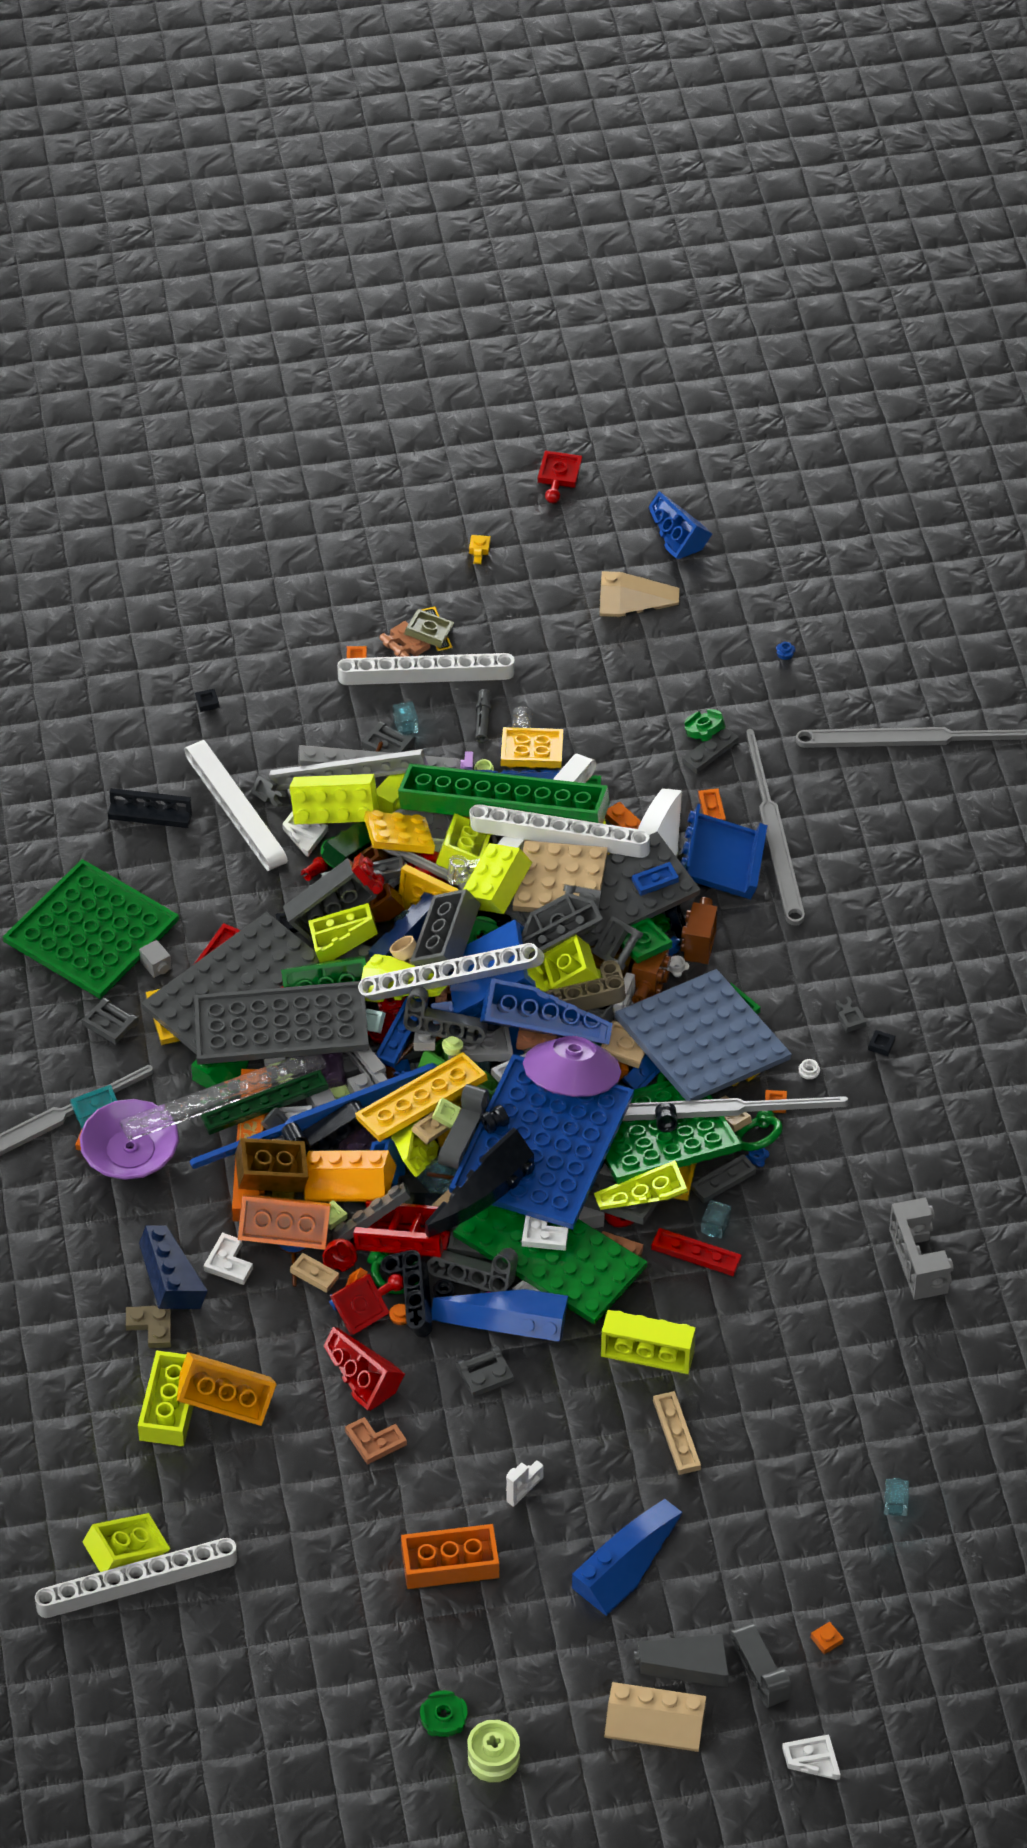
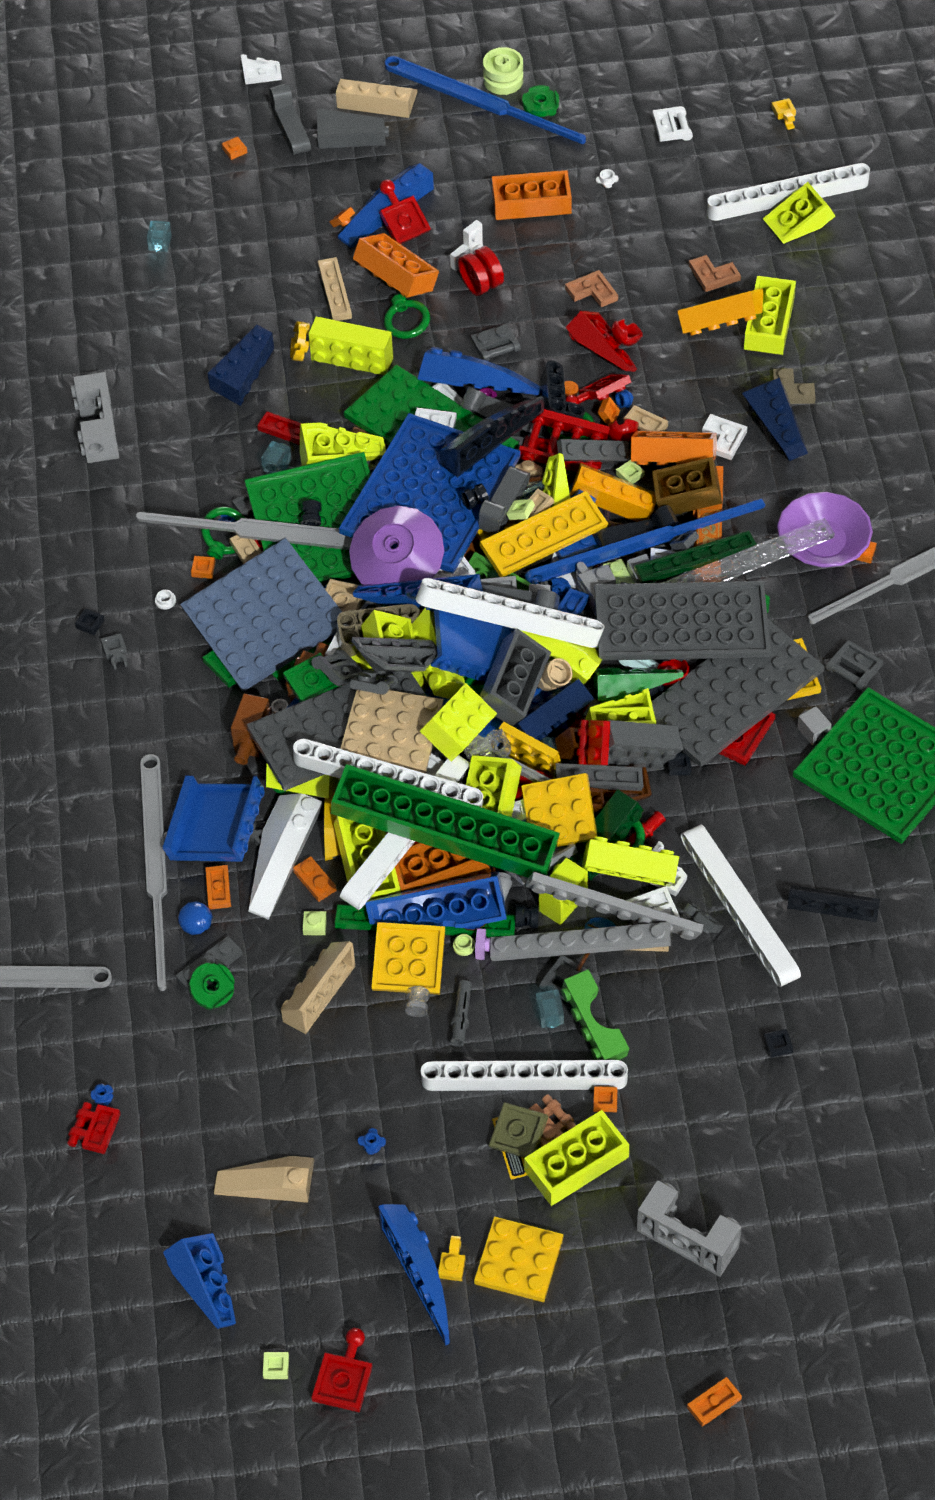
camera: 175 degrees left, 5 degrees up
(88, 1103) = (860, 575): teal plate -> none
(132, 1703) = (785, 110): none -> yellow plate
(234, 1459) = (711, 277): none -> nougat plate
(272, 466) = (714, 1401): none -> orange plate
(273, 544) = (658, 1223): none -> light grey plate
(283, 1678) = (666, 125): none -> white plate
(334, 1376) = (626, 334): none -> red hair
(355, 1593) = (607, 178): none -> white plate
(356, 692) = (605, 1042): none -> bright green arch
(380, 607) = (576, 1157): none -> neon yellow brick
(425, 551) = (519, 1259): none -> yellow plate
(452, 1045) = (511, 579): yellowish green plate -> none
(505, 1440) = (481, 270): none -> red wheel
(509, 538) = (416, 1259): none -> blue wedge
(536, 1729) = (474, 96): none -> blue piece
(552, 623) = (371, 1148): none -> blue plate
(597, 1415) = (400, 304): none -> green piece
(603, 1519) = (402, 218): none -> red plate
(606, 1446) = (395, 265): none -> orange brick
(609, 722) = (319, 986): none -> tan slope
(612, 477) = (276, 1365): none -> yellowish green plate
(620, 785) = (314, 923): none -> yellowish green plate
(655, 878) = (292, 720): blue plate -> none
(678, 1529) = (342, 218): none -> orange plate
(707, 1347) = (298, 343): none -> yellow plate
(729, 784) = (195, 918): none -> blue hair
(770, 1325) = (241, 366): none -> dark blue wedge
(781, 624) = (99, 1131): none -> red plate

